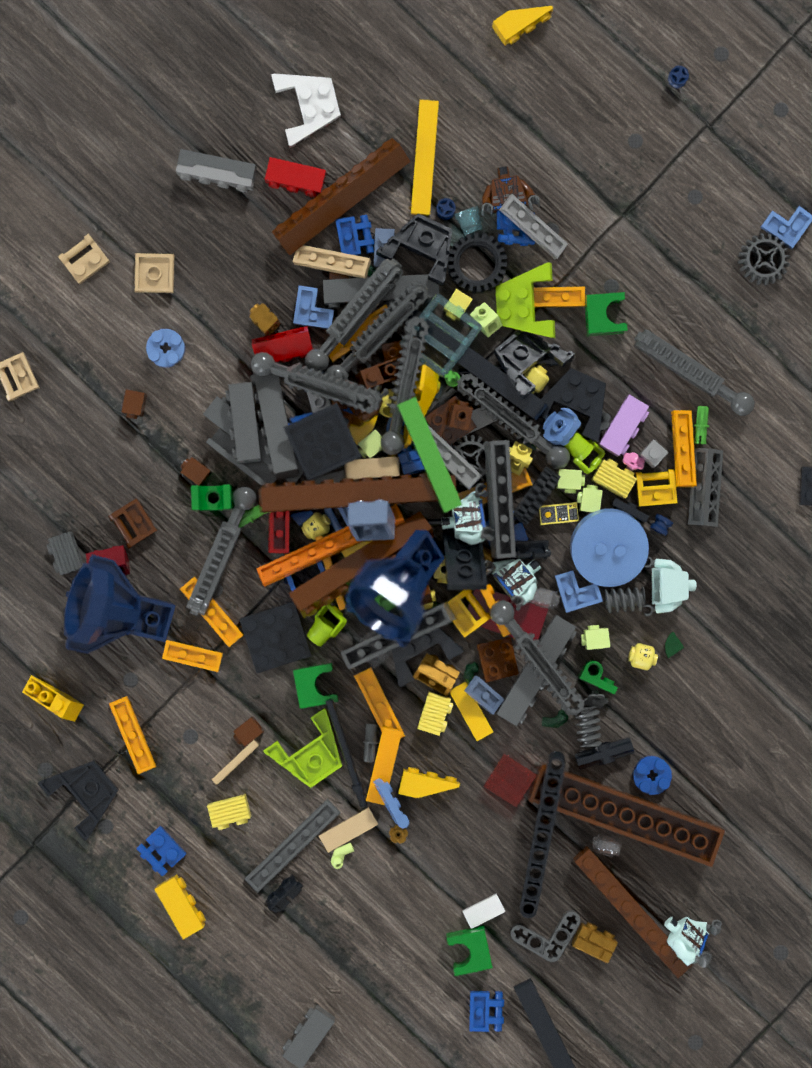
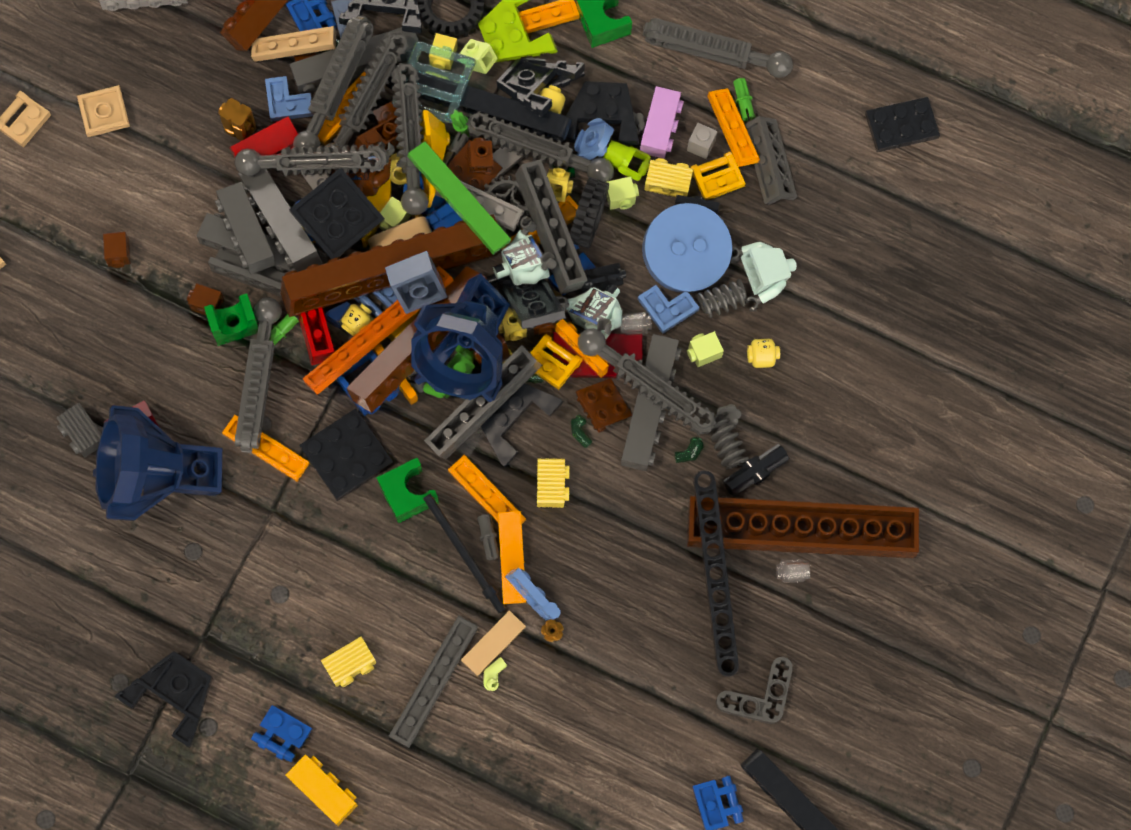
camera: 20 degrees left, 15 degrees down
(53, 699) = (108, 595): yellow slope -> none
(132, 735) = (212, 611): light orange tile -> none
(138, 520) = (153, 370): reddish brown plate -> none
(172, 356) = (131, 173): medium blue plate -> none
(192, 655) = (257, 500): light orange plate -> none
(236, 761) = (340, 603): tan tile -> none
(247, 731) = (344, 565): reddish brown brick -> none
(289, 887) = (442, 731): black hinge -> none
(315, 759) = (430, 575): lime wing -> none
(323, 628) = (397, 428): lime piece -> none
(420, 785) = (560, 566): yellow slope -> none
(436, 674) = (540, 438): pearl gold brick -> none
(471, 712) = (592, 470): yellow tile -> none
(479, 956) = (684, 729): green piece -> none
(483, 911) = (678, 689): white tile -> none
(484, 694) = (600, 445): sand blue plate -> none
(510, 780) = (660, 531): clear red plate -> none
(558, 513) = (620, 233): tile -> none
(589, 499) = (648, 206): yellowish green brick -> none
(594, 942) = (816, 684): pearl gold brick -> none
(605, 684) = (719, 394): green plate -> none
(630, 909) = (848, 635): reddish brown brick -> none
(633, 461) = (683, 155): bright pink plant -> none
(661, 525) = (736, 211): dark blue wheel -> none
(661, 781) = (814, 491): blue plate -> none
(672, 645) = (792, 334): dark green tile -> none
(689, 939) = (923, 643): torso -> none

